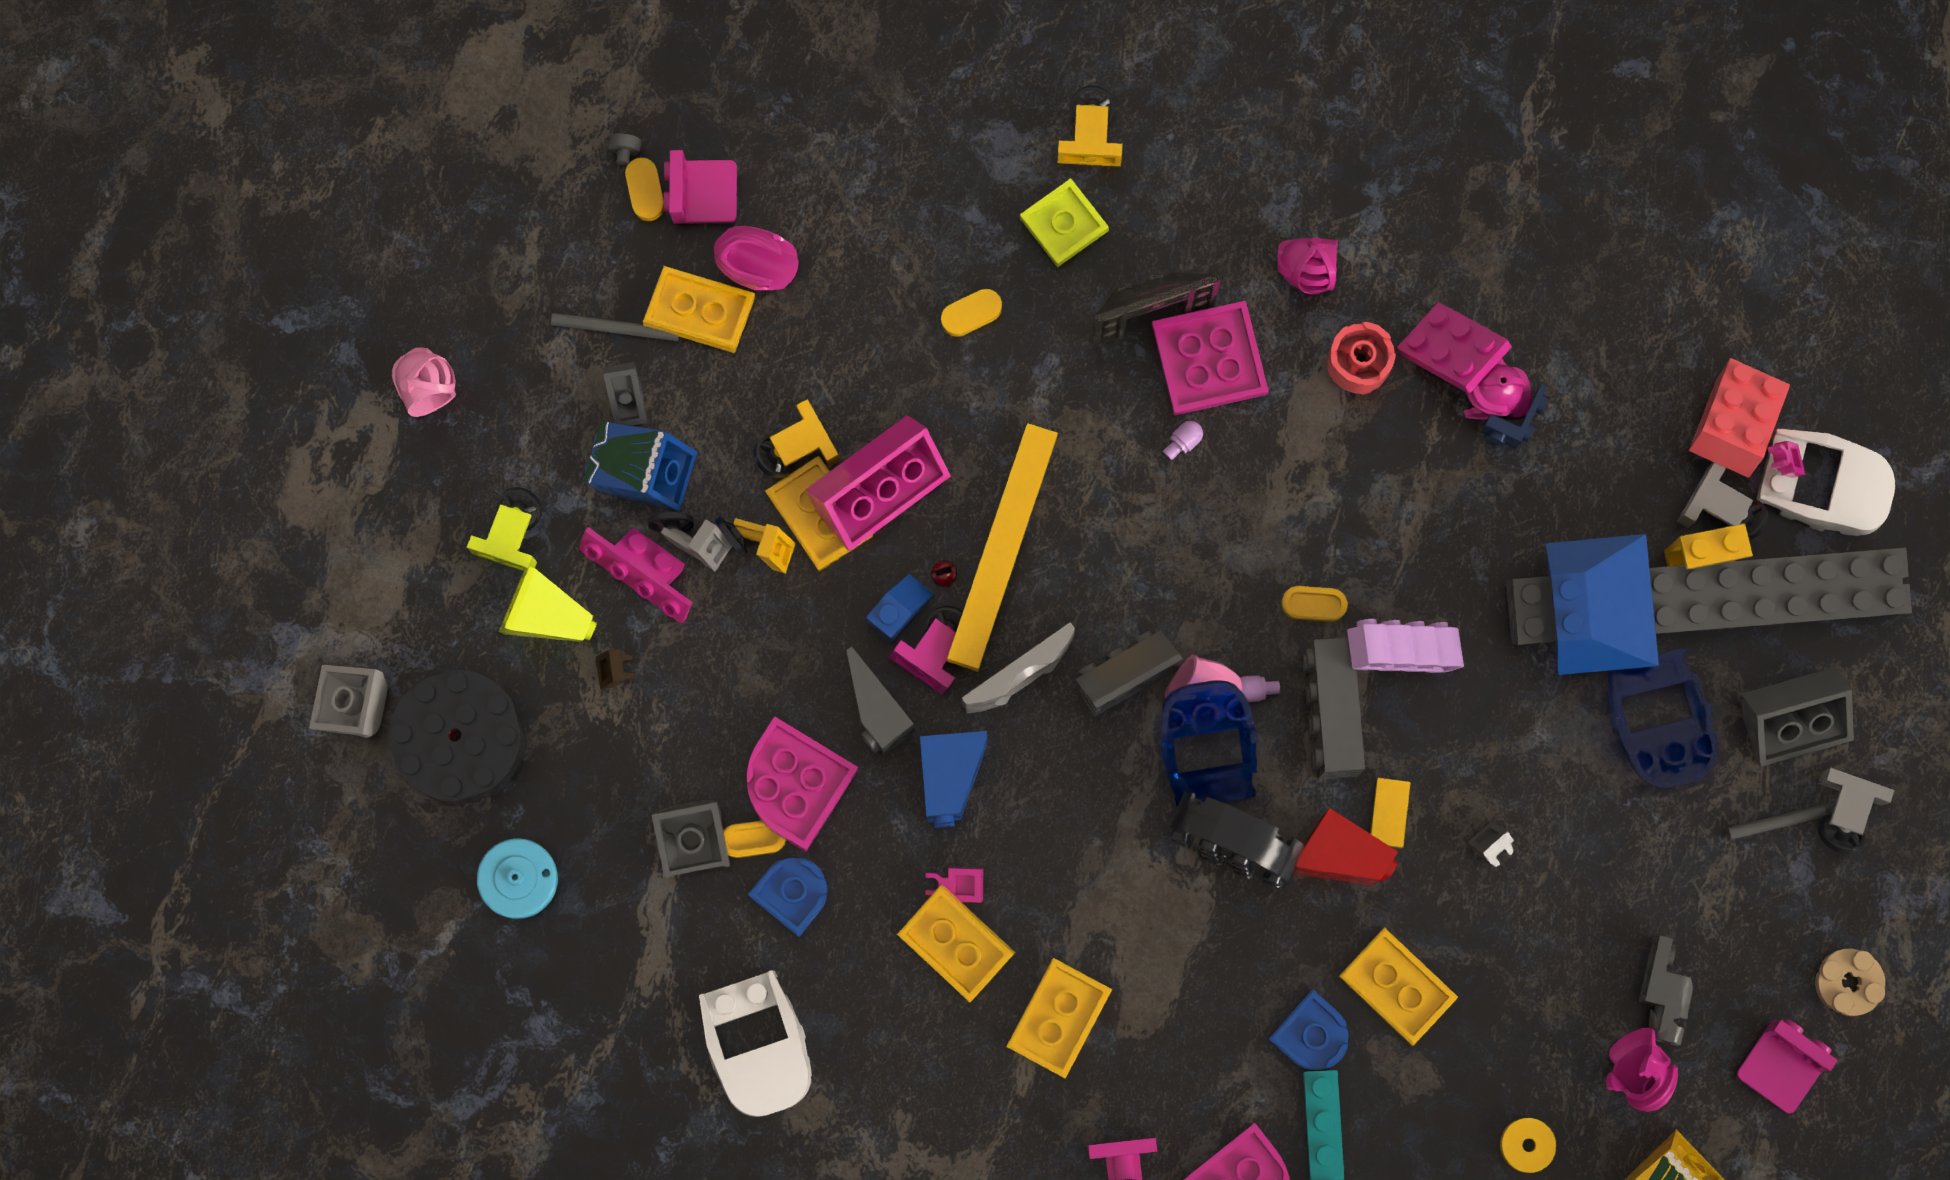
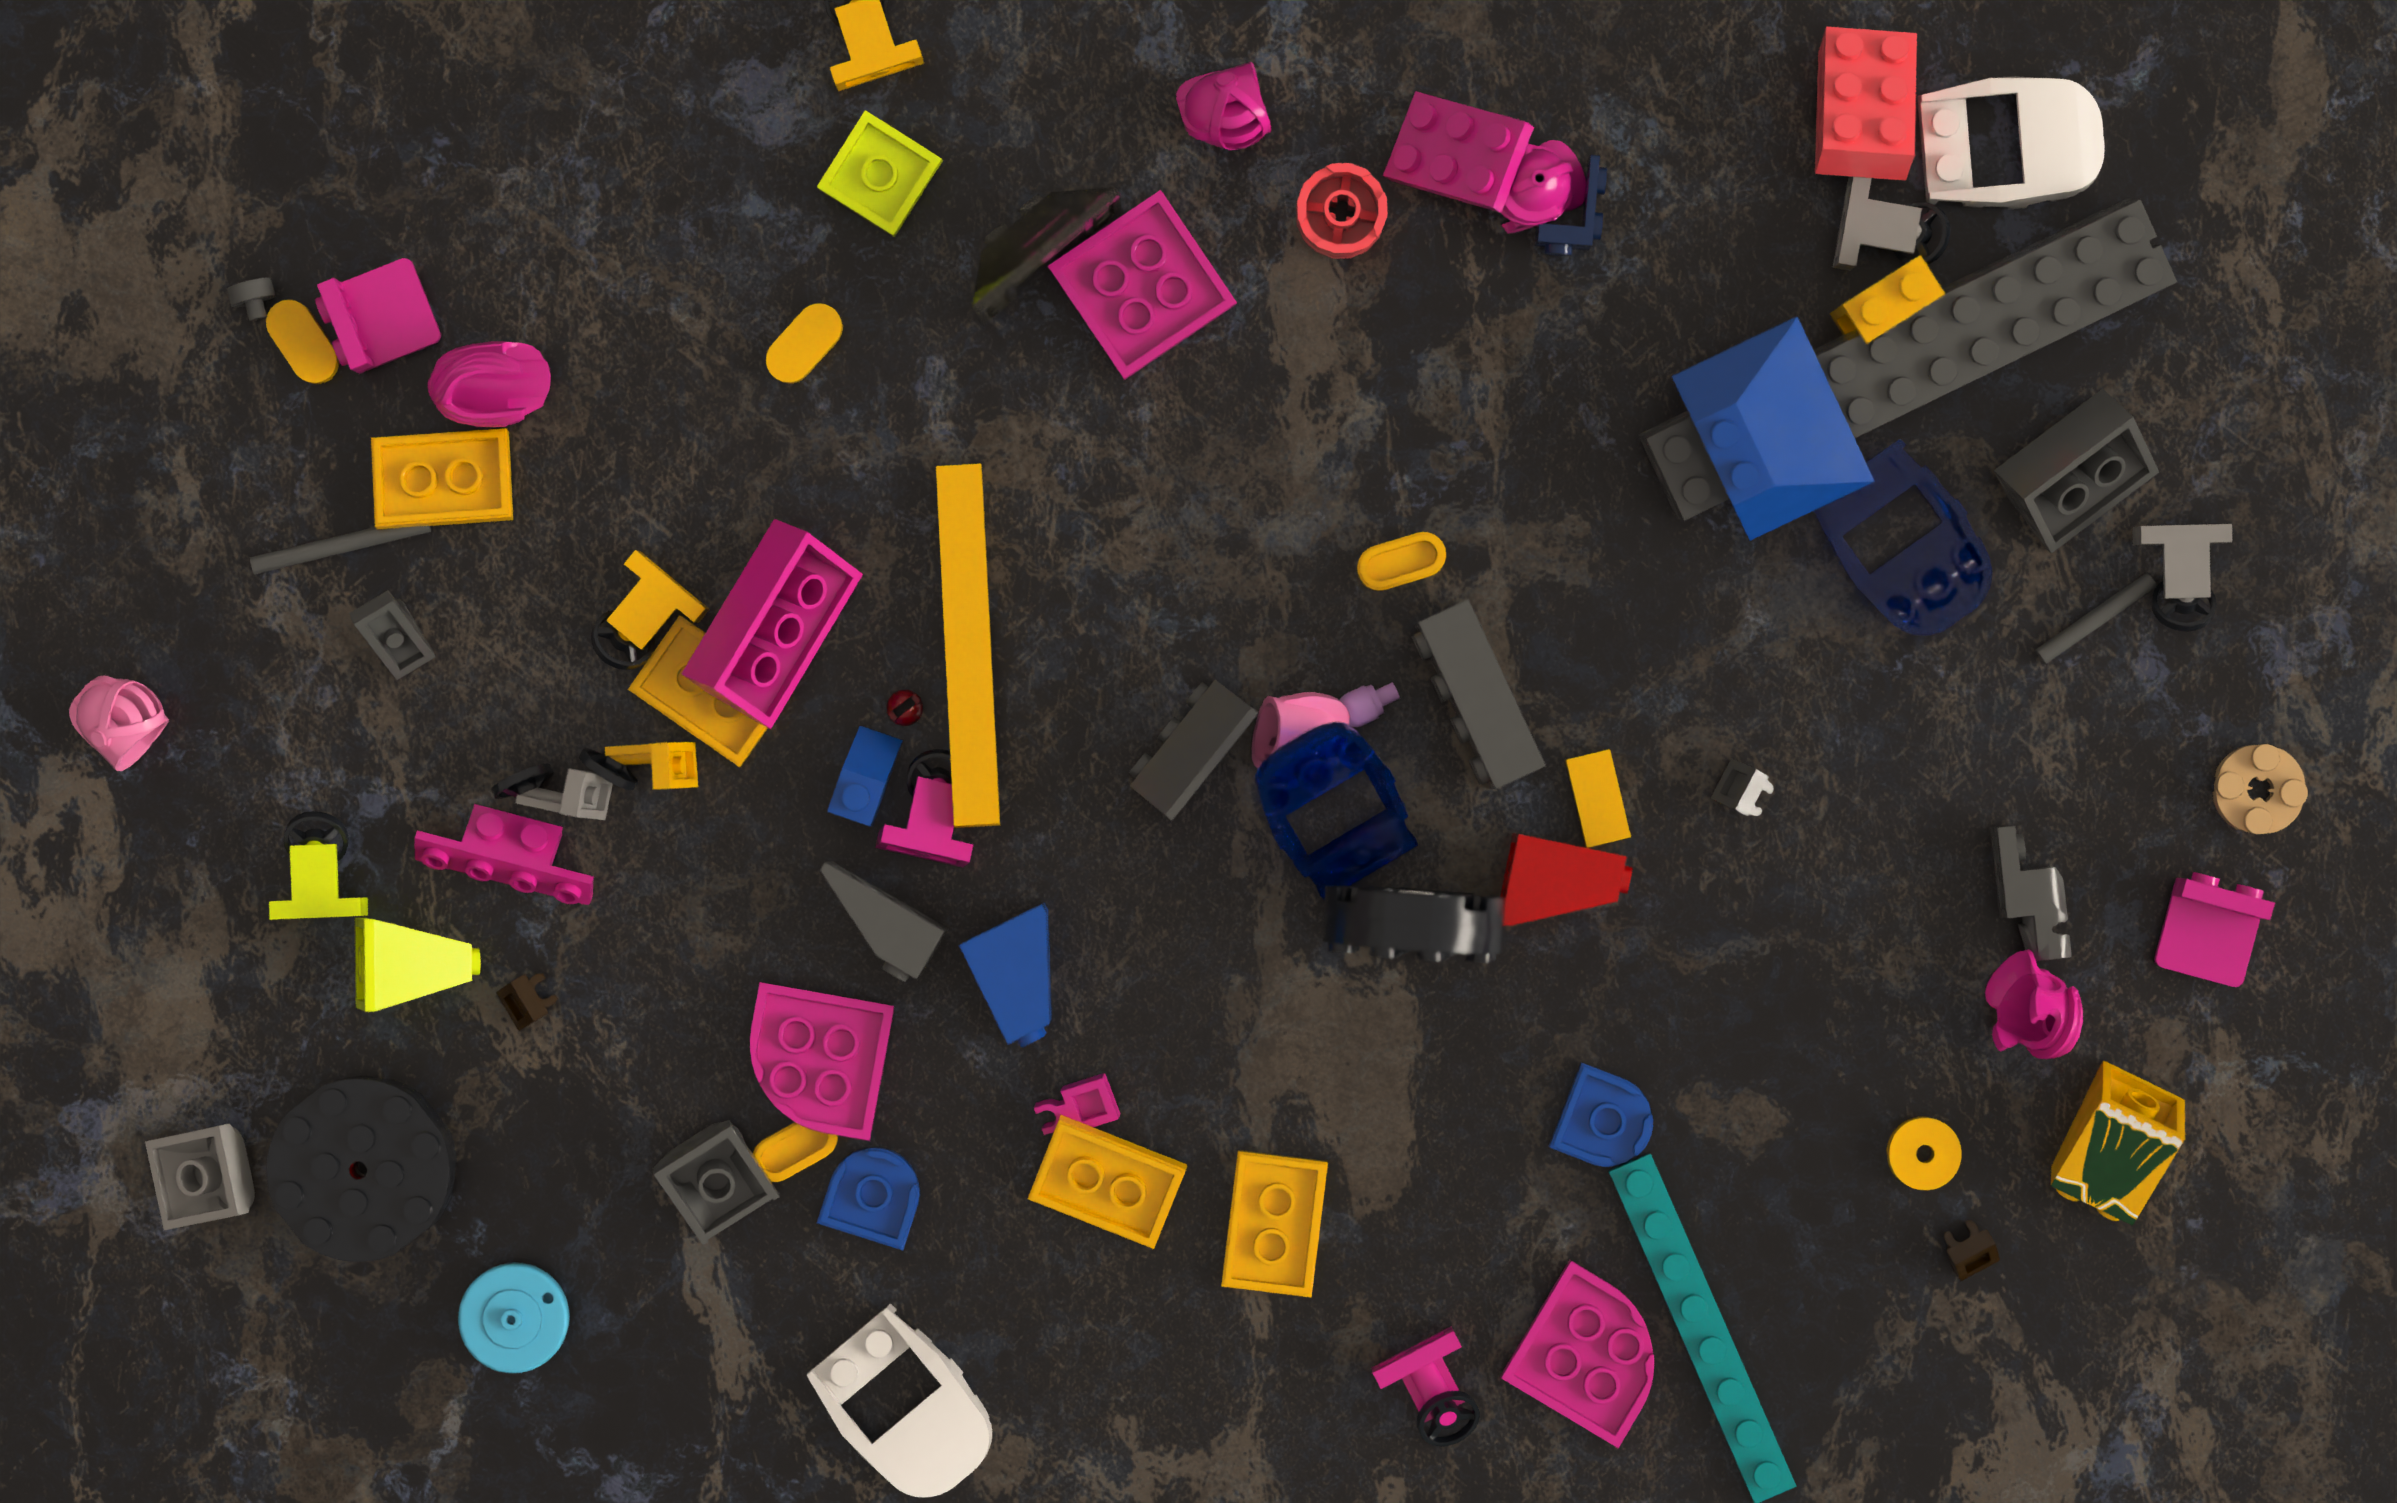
camera: 30 degrees left, 10 degrees up
(640, 465) = (451, 721): blue slope -> none
(1020, 673) = (1057, 804): light grey slope -> none
(1184, 439) = (1150, 407): lavender cylinder -> none
(1398, 986) = (1689, 1016): yellow tile -> none
(1405, 646) = (1539, 583): lavender brick -> none
(1787, 459) = (1947, 137): dark pink plate -> none

